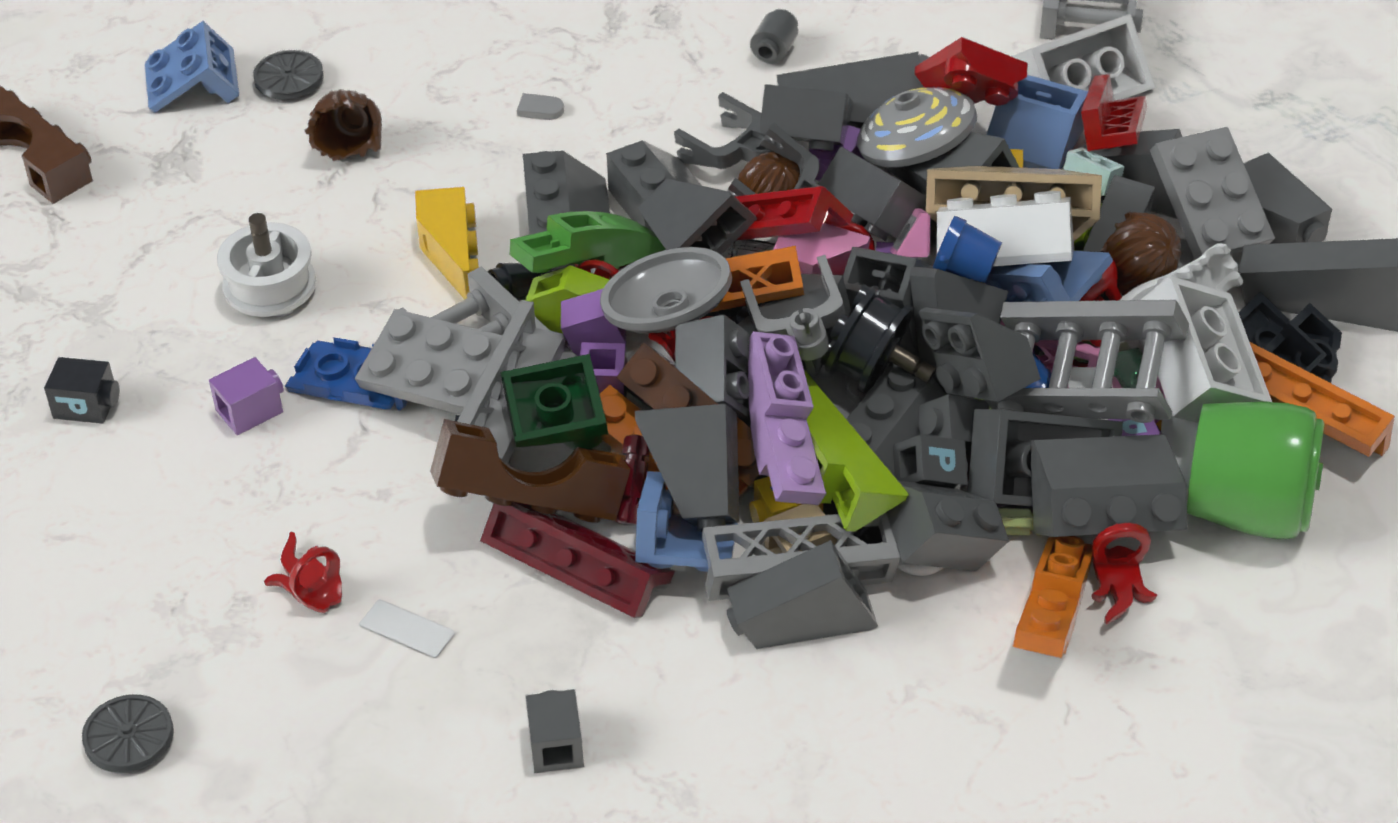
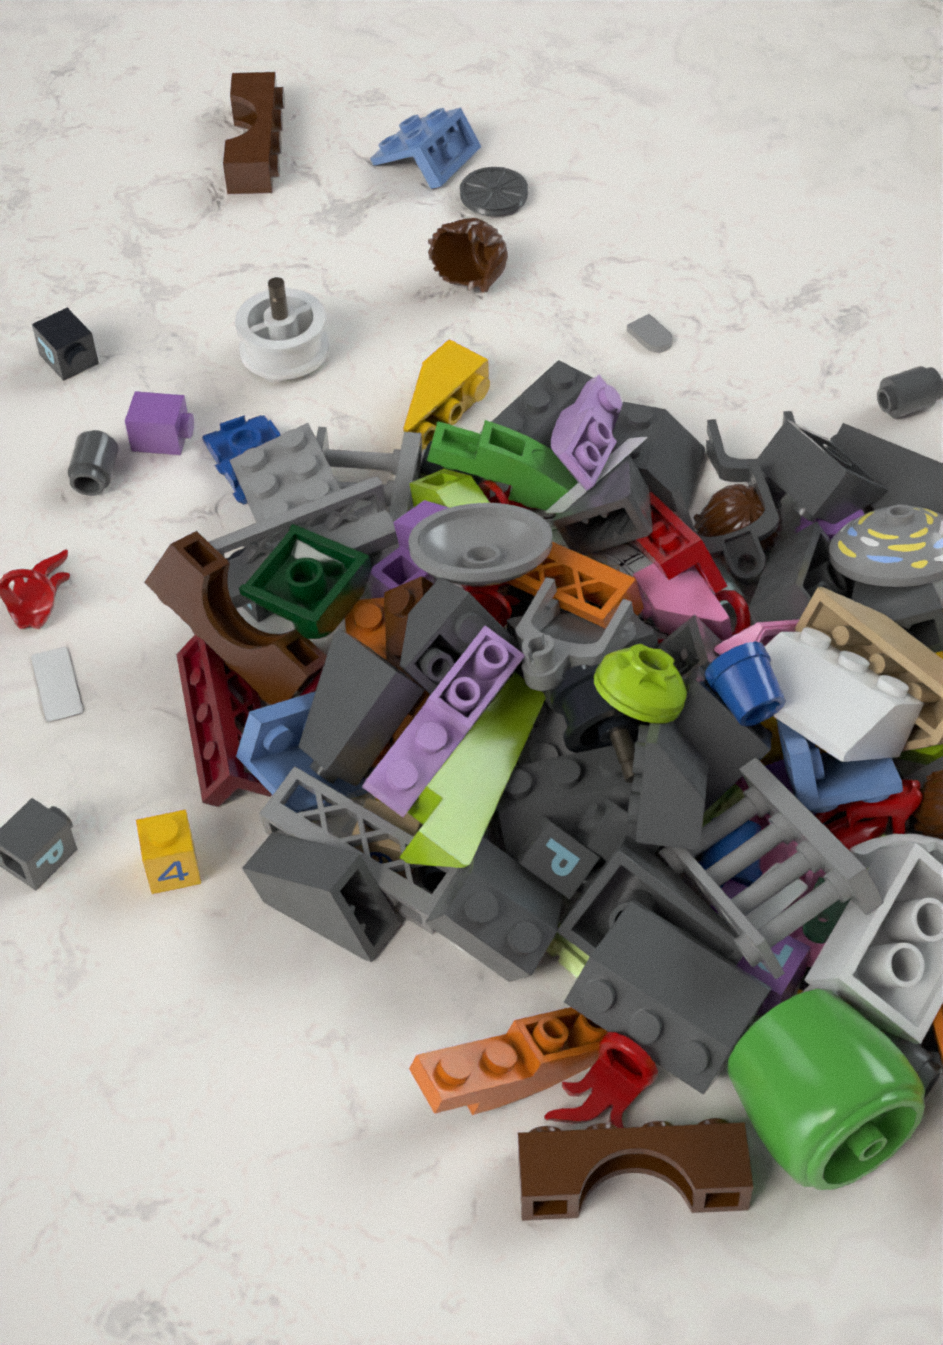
camera: 45 degrees right, 5 degrees up
(228, 458) = (92, 462): none -> dark grey brick
(619, 189) = (585, 429): none -> lavender slope
(660, 207) = (613, 459): none -> white sticker
(663, 659) = (168, 851): none -> yellow brick
(907, 290) = (642, 684): none -> lime piece
(1226, 572) = (700, 1161): none -> reddish brown arch

